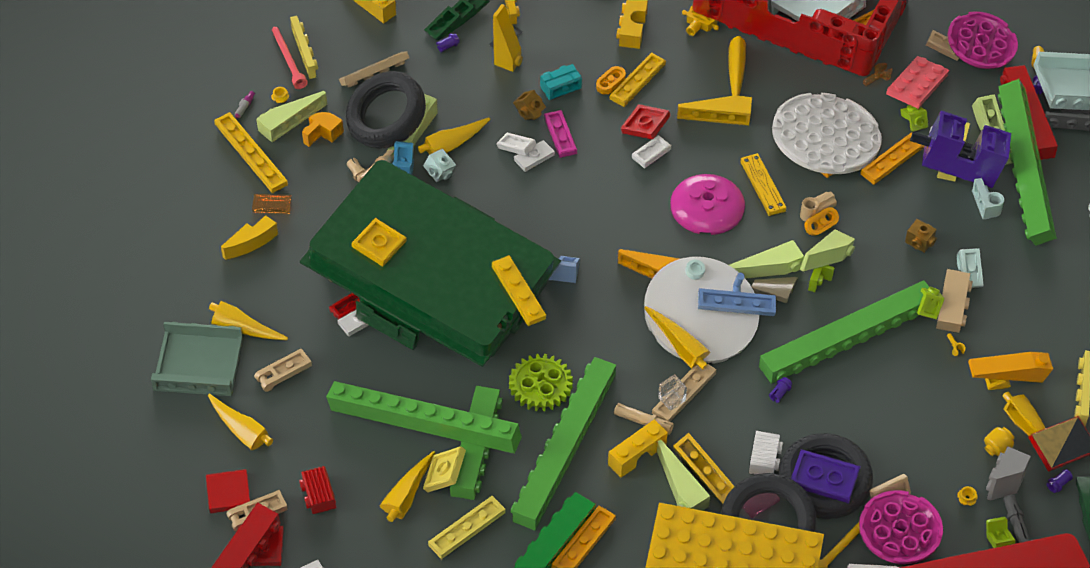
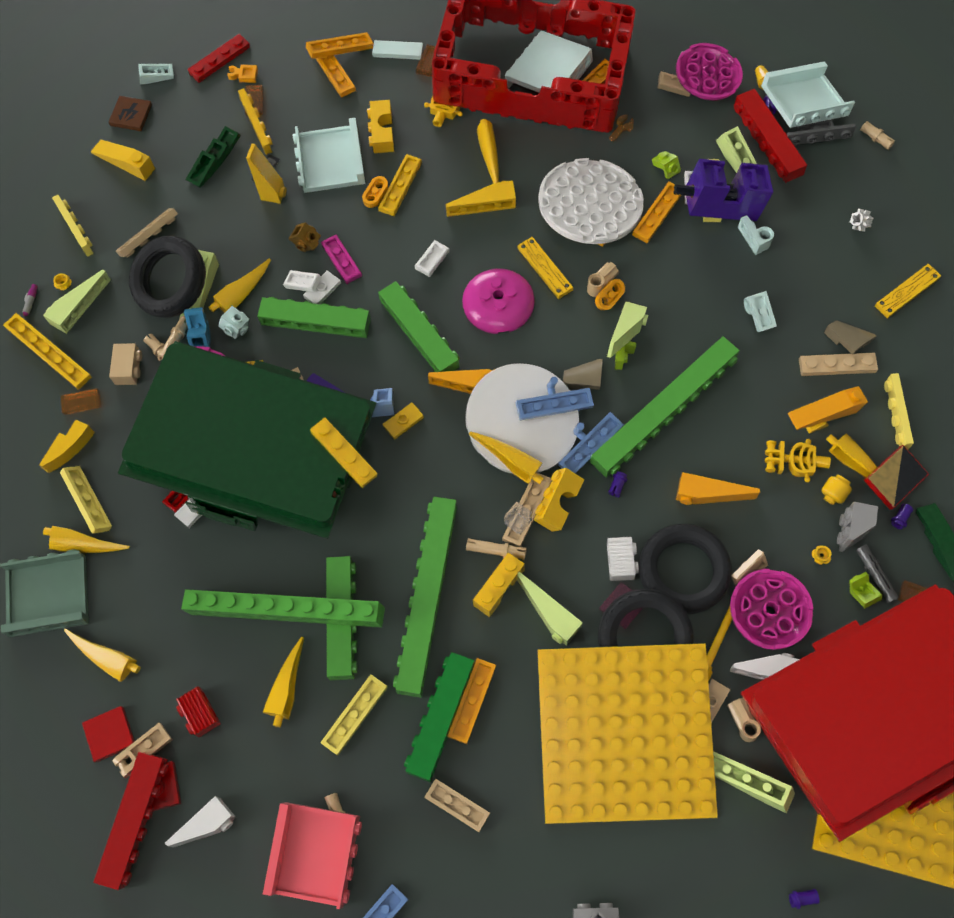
camera: 10 degrees left, 15 degrees up
(256, 288) = (86, 499): none -> light yellow plate
(283, 369) = (132, 583): tan plate -> none
(298, 79) = (76, 261): coral piece -> none
(323, 125) = (108, 305): light orange brick -> none
(324, 179) = (125, 364): none -> tan brick
(379, 242) = (191, 436): yellow tile -> none
(444, 469) = (317, 658): light yellow tile -> none
(448, 42) = (211, 188): dark purple pin -> none
(520, 178) = (314, 317): none -> bright green brick
(540, 382) = (391, 518): lime gear -> none
(560, 81) = (328, 204): teal brick -> none
(572, 40) = (329, 158): none -> light aqua panel
(582, 289) = (403, 421): none -> yellow plate
(620, 209) = (418, 329): none -> bright green brick
(645, 122) = (419, 228): red tile -> none
(695, 269) = (507, 379): light aqua tile -> none
(703, 467) = (569, 591): yellow slope -> none
(705, 397) = (550, 512): none -> yellow arch
(750, 355) = (590, 443): none -> medium blue plate
(772, 262) = (578, 347): yellowish green slope -> none
(825, 475) = (687, 575): dark purple tile -> none
(869, 414) = (702, 490): none -> light orange slope
(917, 82) = (660, 128): coral plate -> none
(921, 236) = (706, 288): pearl gold brick -> none
(930, 303) = (737, 359): lime bracket -> none
(955, 292) = (755, 350): tan brick -> none
(960, 346) = (767, 400): yellow hand -> none
(982, 412) = (810, 460): none -> yellow torso
(1027, 163) = (784, 189): bright green brick -> none
(1037, 334) = (838, 364): none -> tan plate
(1055, 311) = (849, 336): none -> dark tan slope

